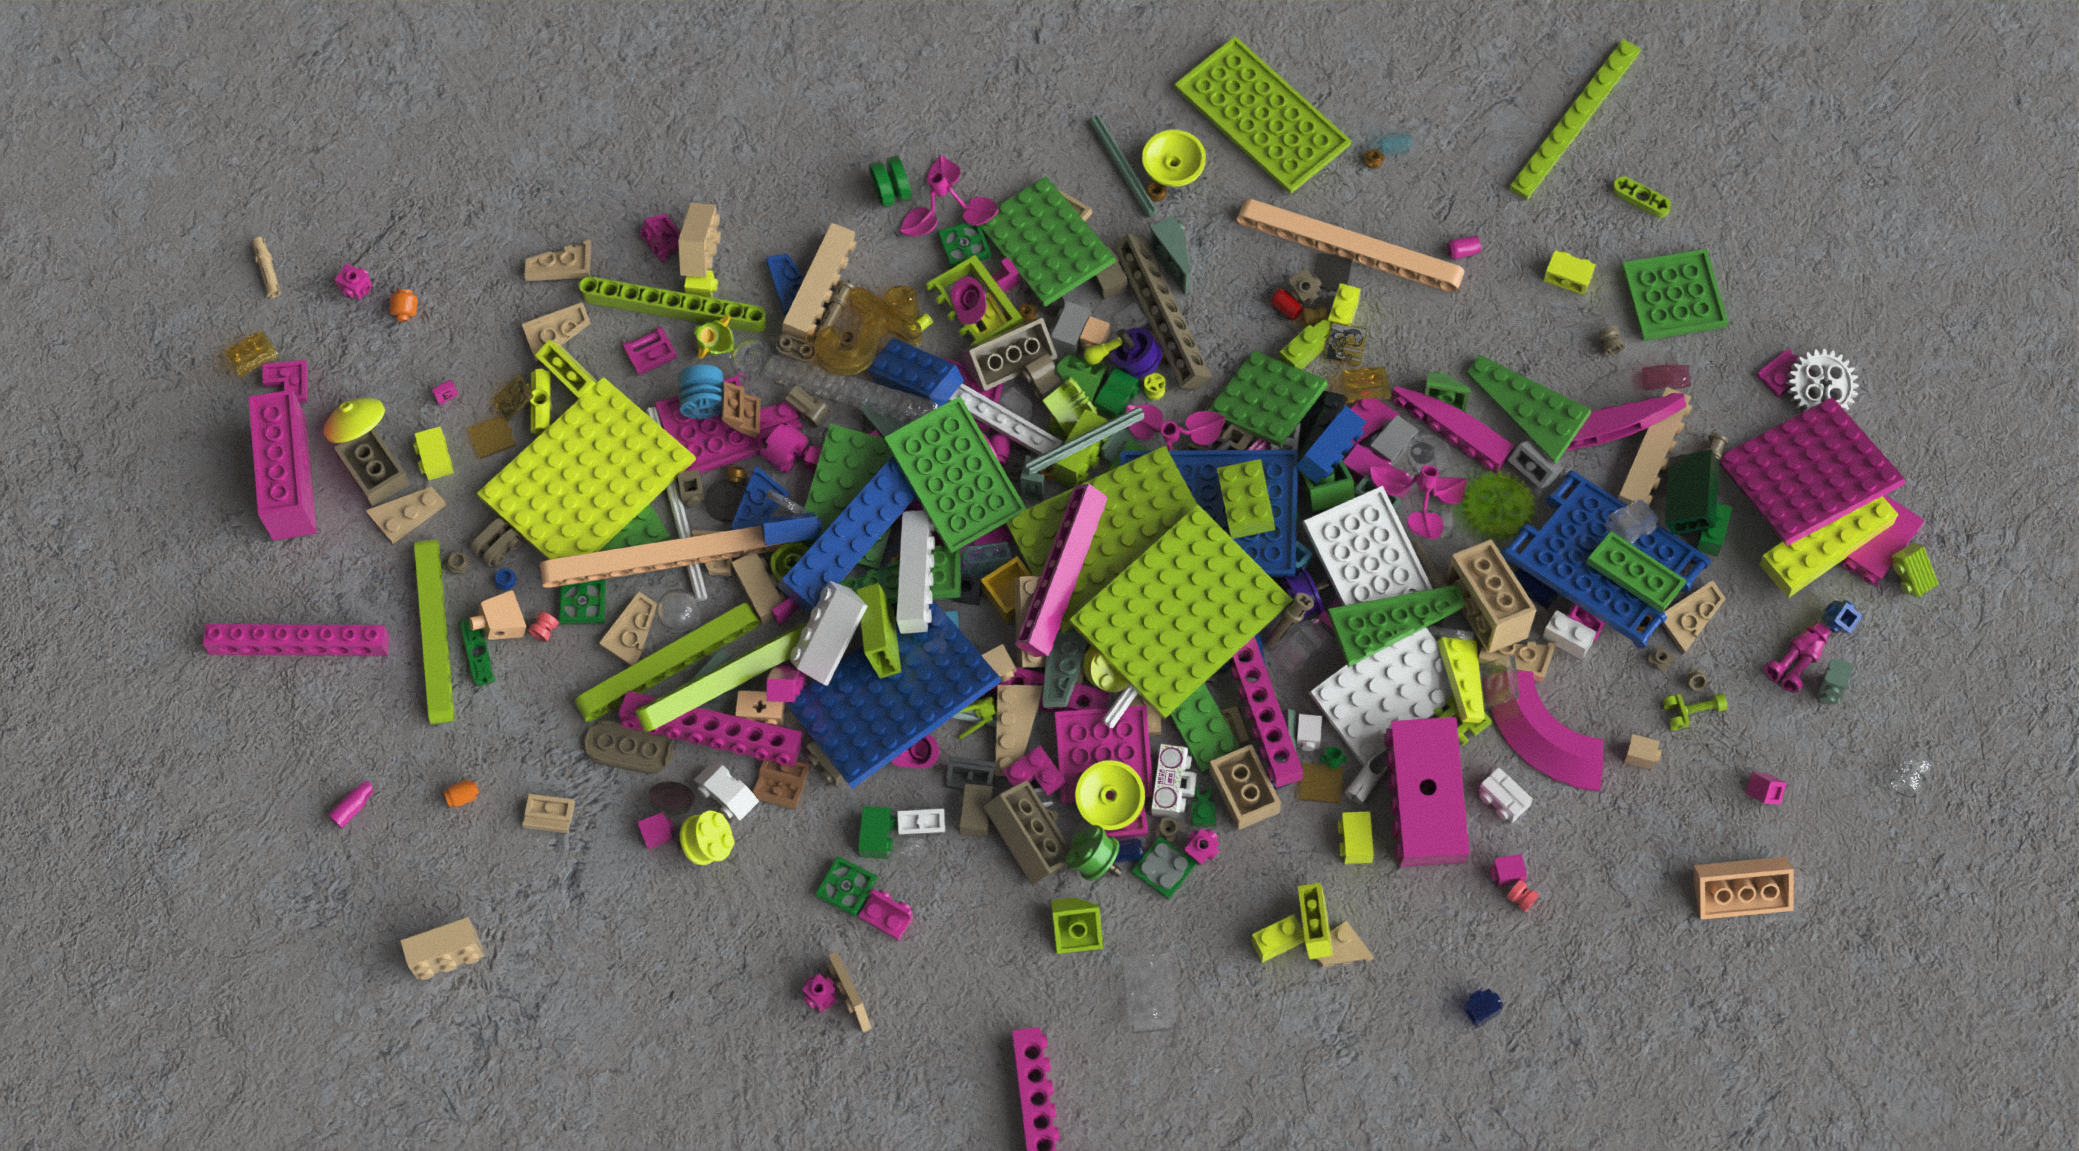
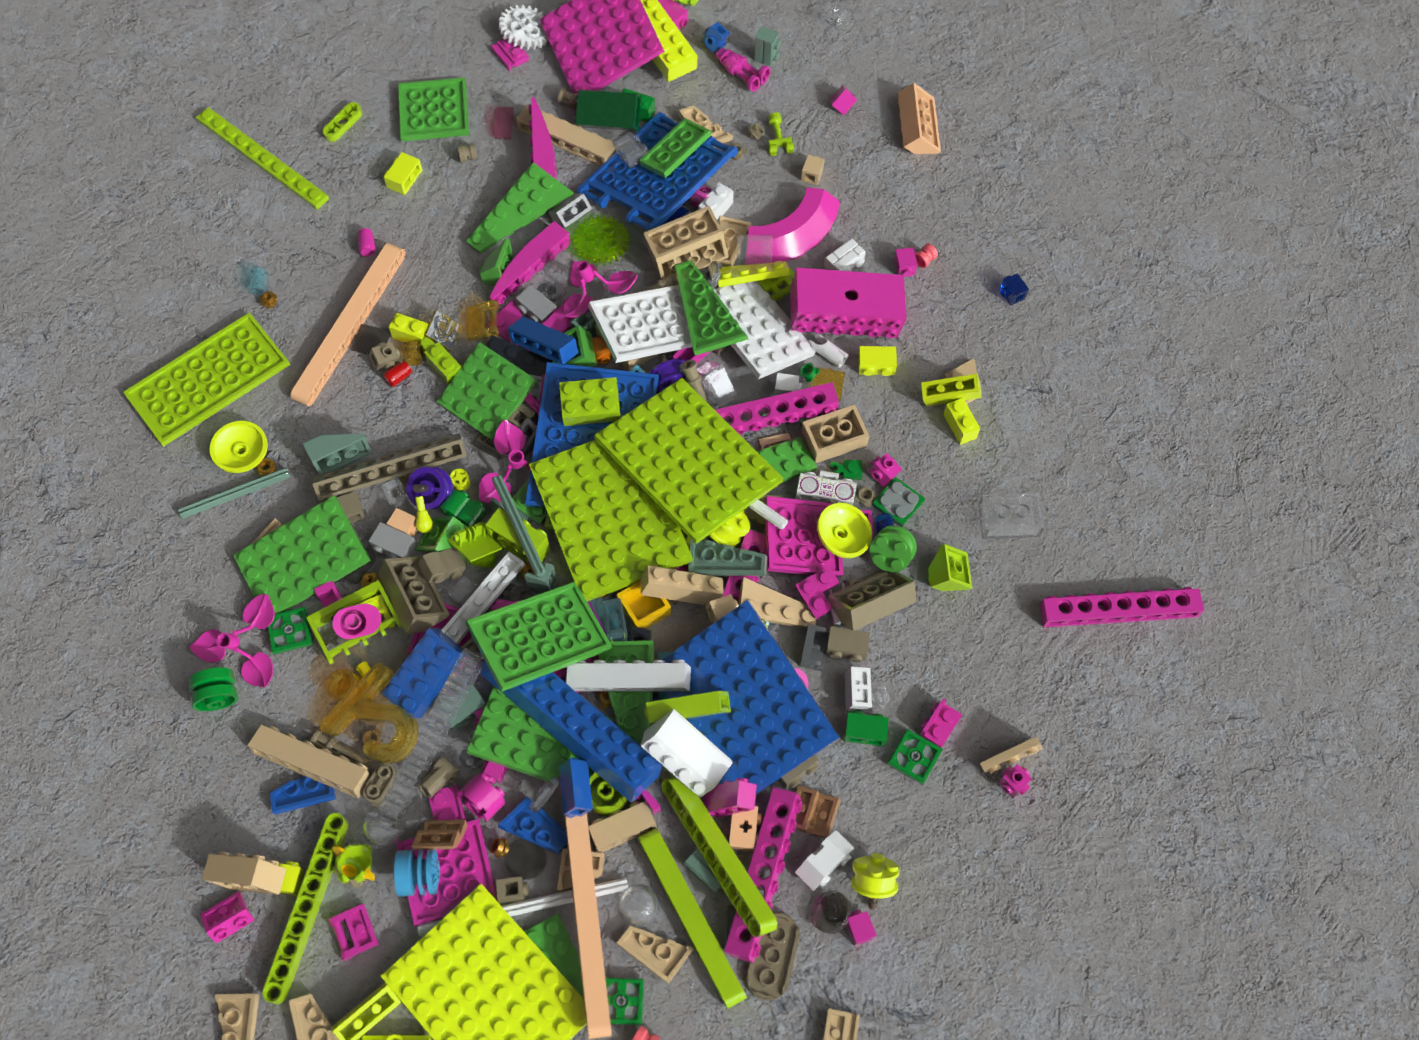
camera: 90 degrees left, 0 degrees up
(1061, 570) = (644, 548): brick -> none

